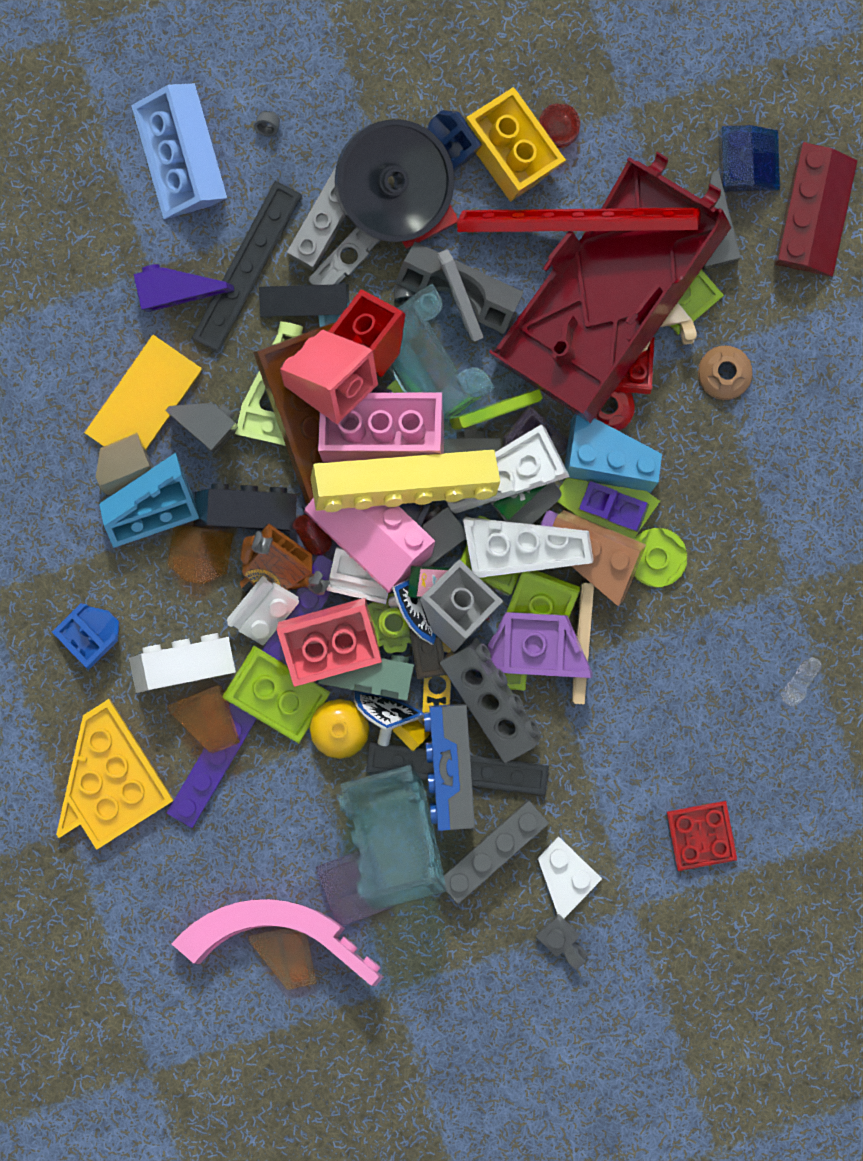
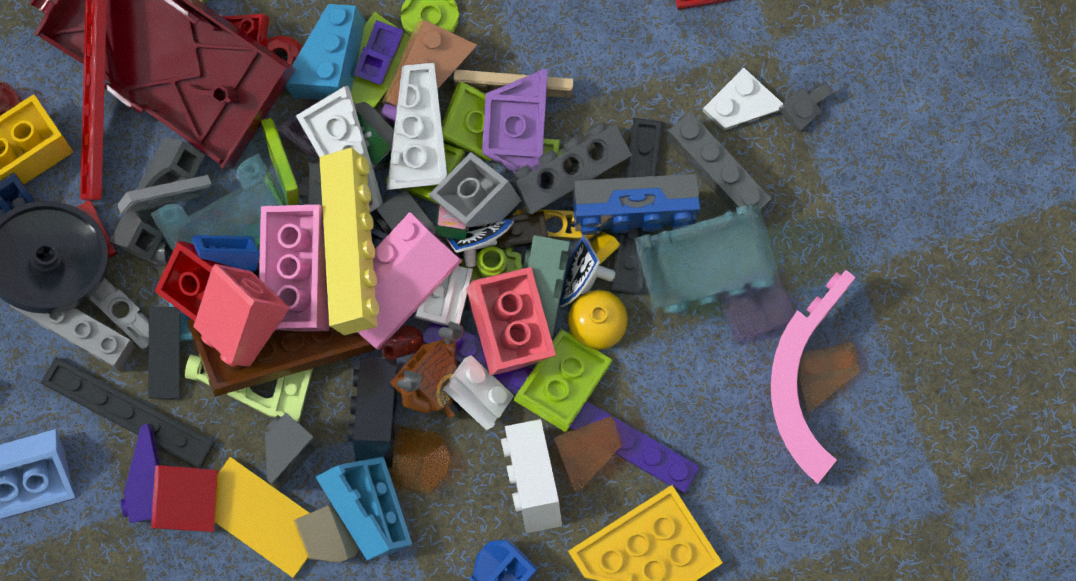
camera: 90 degrees left, 10 degrees down
(155, 326) = (184, 499): none -> red tile
(397, 369) = (228, 250): none -> blue slope

